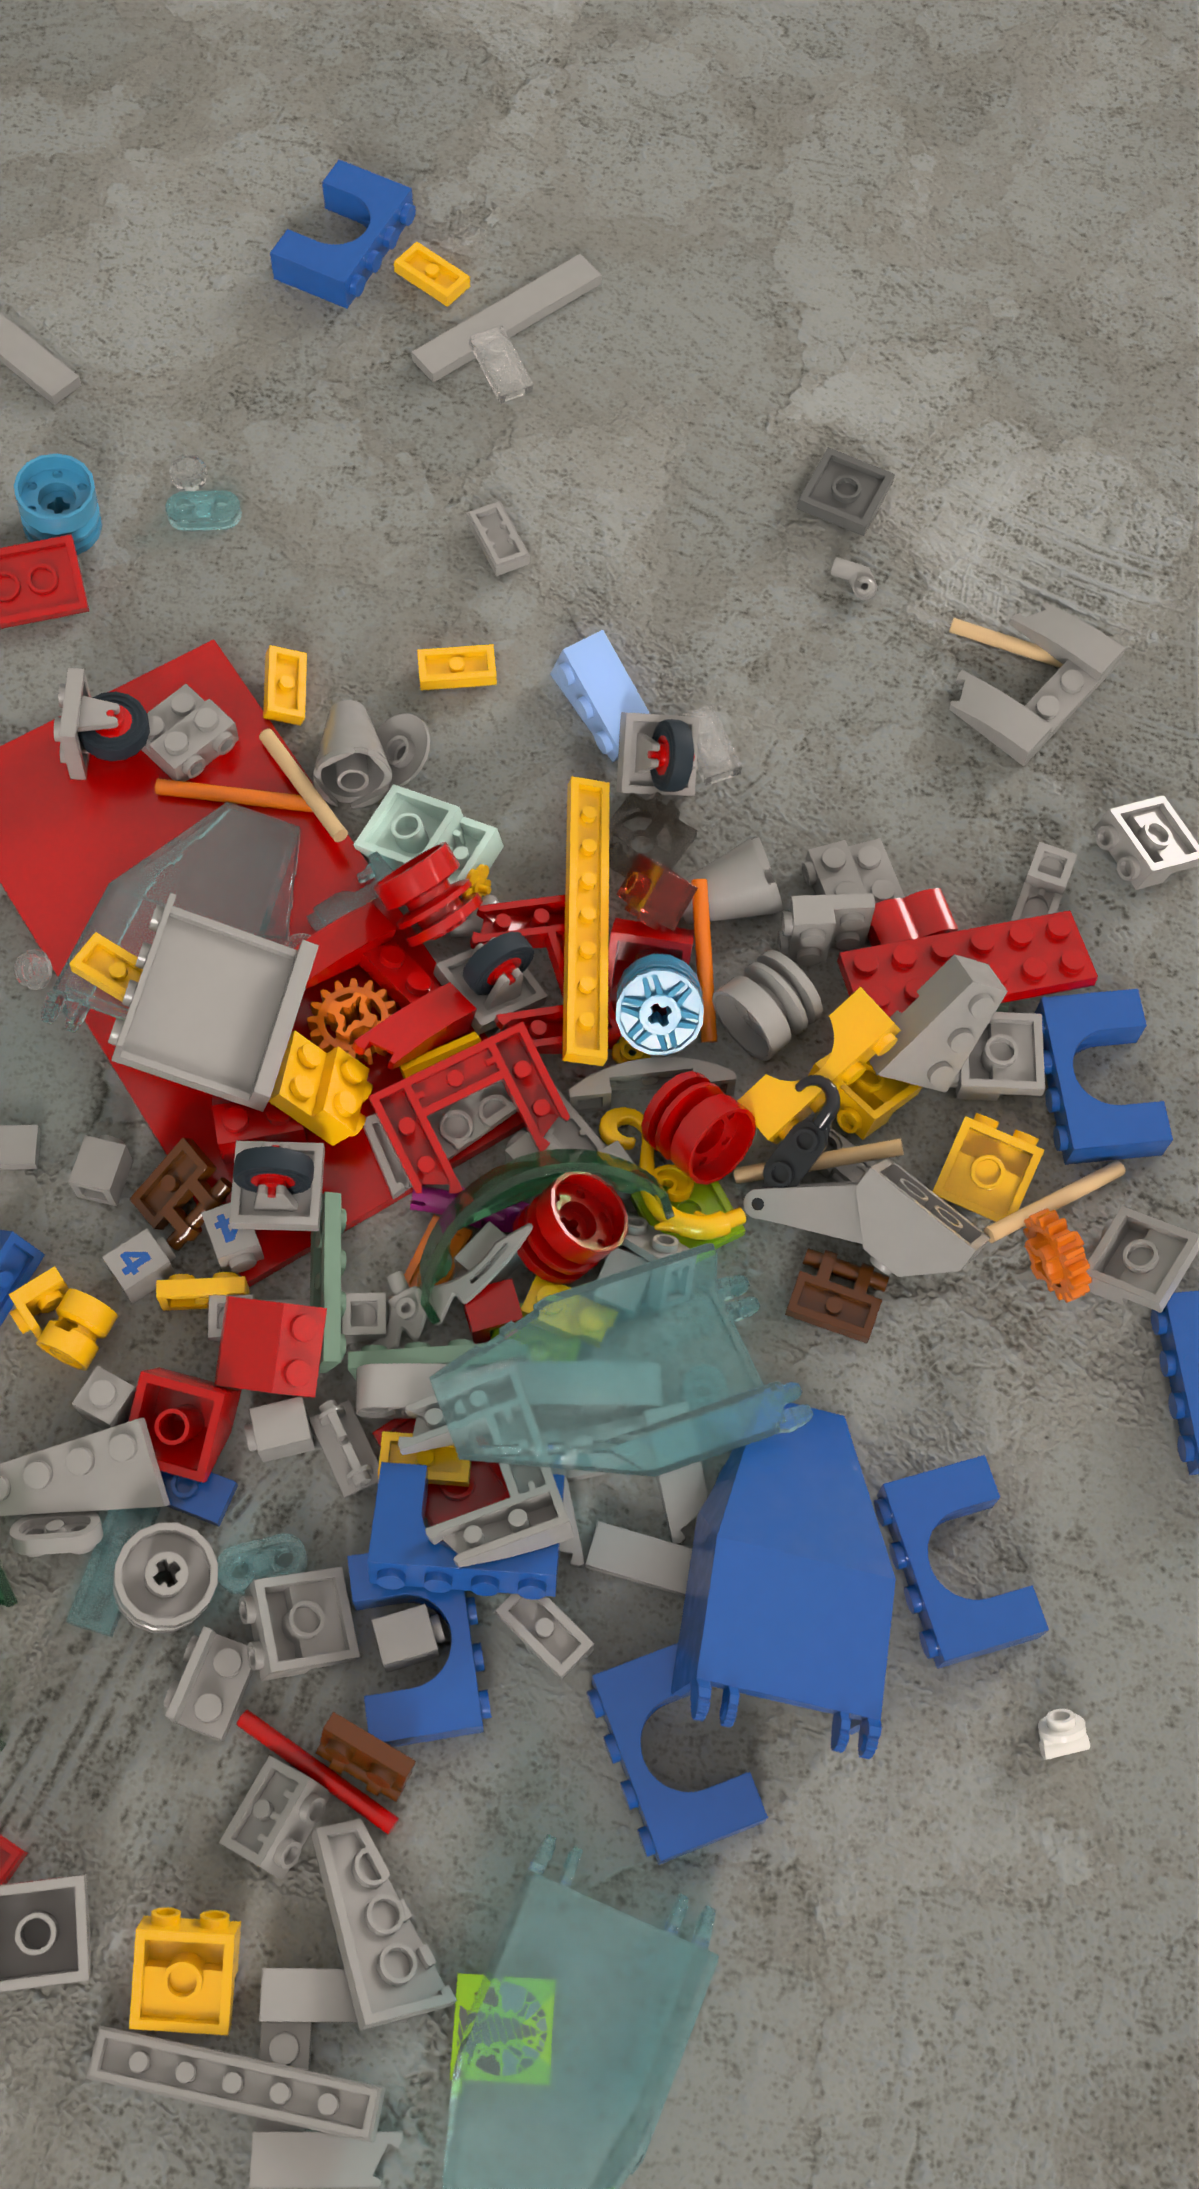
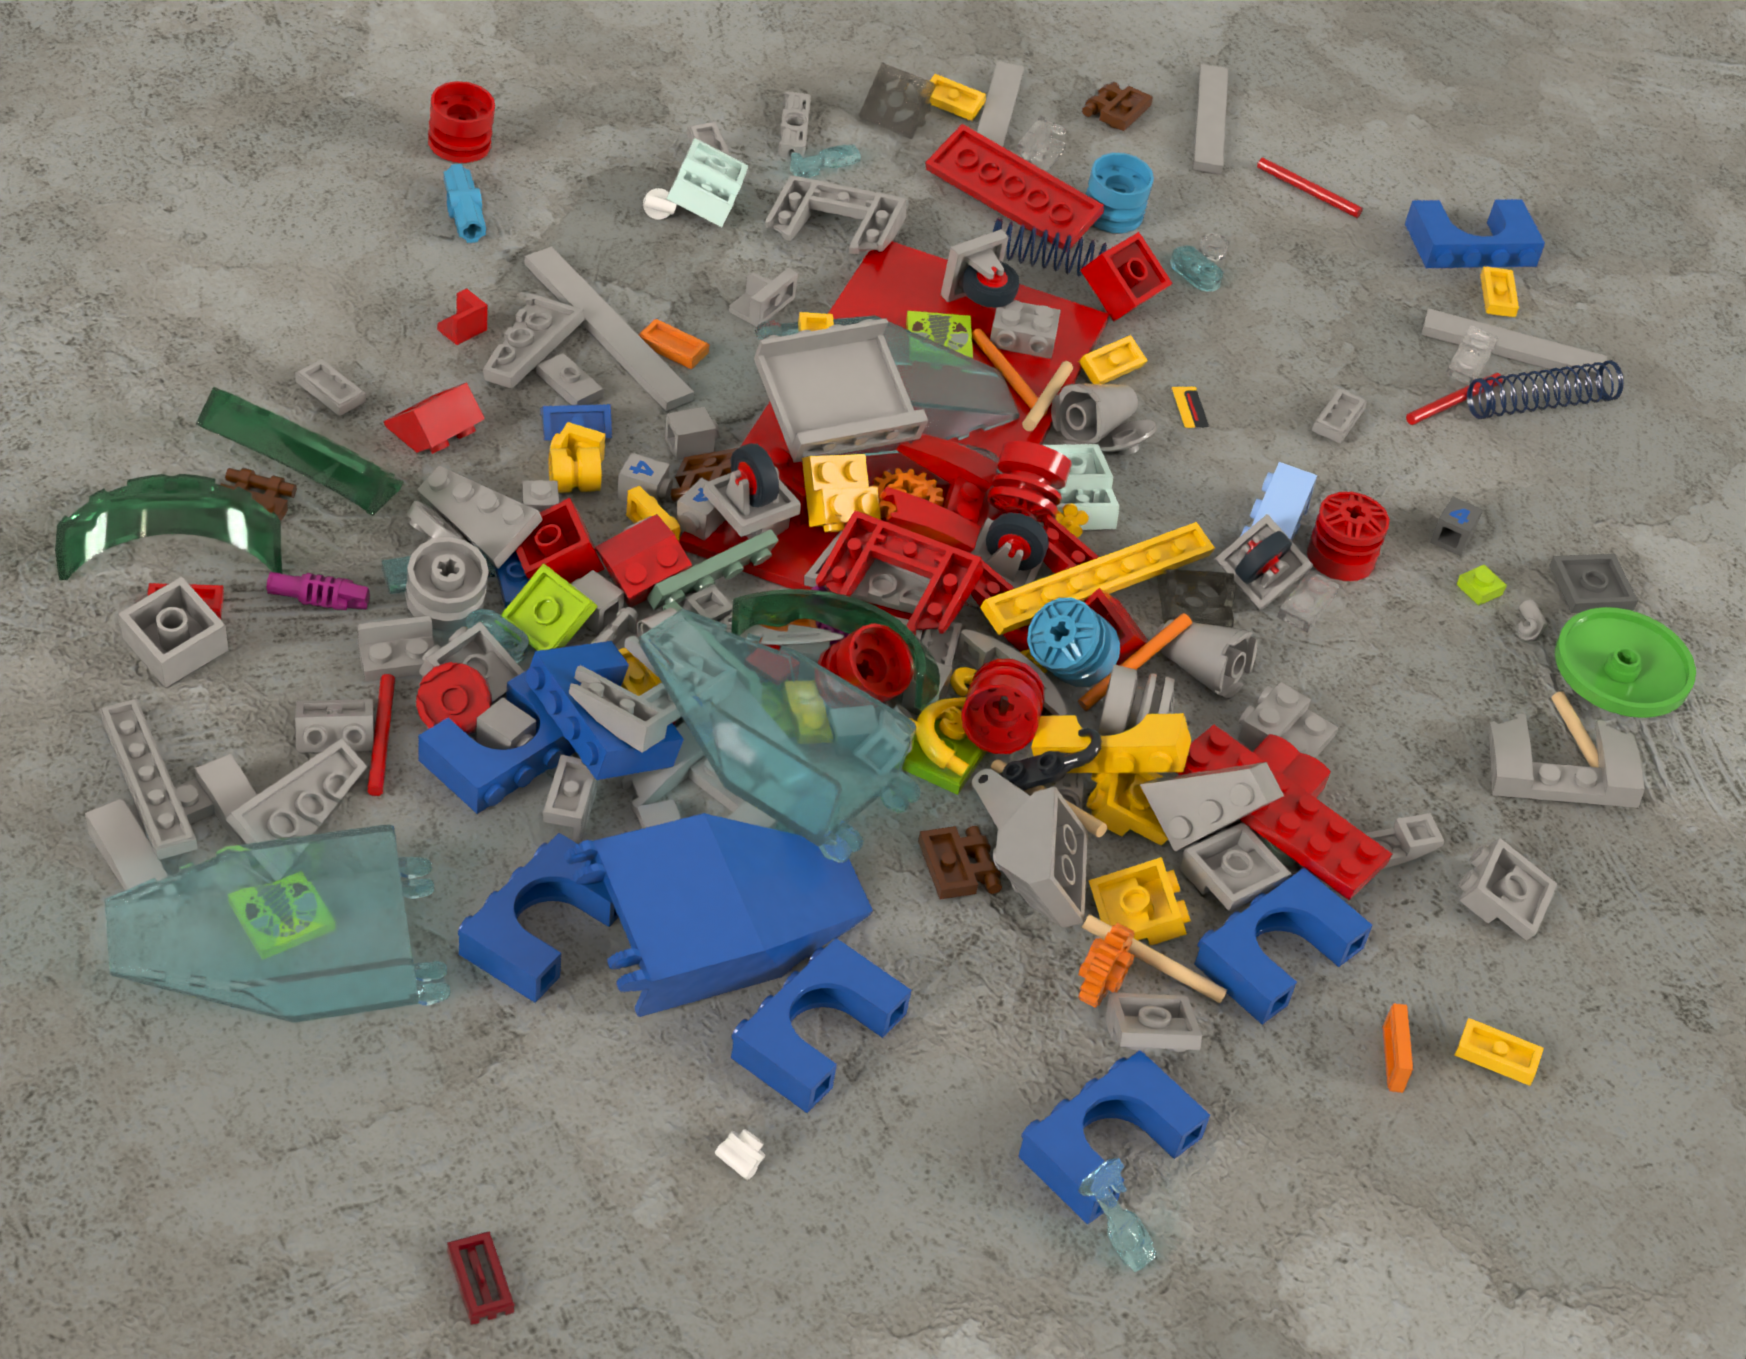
camera: 50 degrees right, 20 degrees down
(42, 678) = (998, 226): none -> dark blue piece
(66, 1721) = (319, 590): none -> magenta hinge
(136, 823) = (945, 329): none -> tile
(164, 322) = (1309, 187): none -> red bar
(184, 1972) = (200, 720): yellow plate -> none
(191, 590) = (1126, 276): none -> red slope
(269, 1491) = (549, 610): none -> lime tile
(334, 1670) = (453, 693): none -> red tile
(364, 1757) = (407, 739): reddish brown plate -> none
(385, 658) = (1190, 407): none -> sticker
(457, 667) = (1220, 439): yellow plate -> none
(539, 422) = (1446, 402): none -> red bar
(613, 293) = (1598, 380): none -> dark blue piece
(656, 893) = (1154, 602): clear red brick -> none
(668, 653) = (1347, 536): none -> red wheel
(707, 549) = (1456, 526): none -> dark grey brick
(783, 583) = (1481, 584): none -> lime plate
(824, 922) = (1230, 706): light grey plate -> none
(962, 543) = (1625, 662): none -> bright green dish
(1027, 2074) = (489, 1307): none -> dark red tile

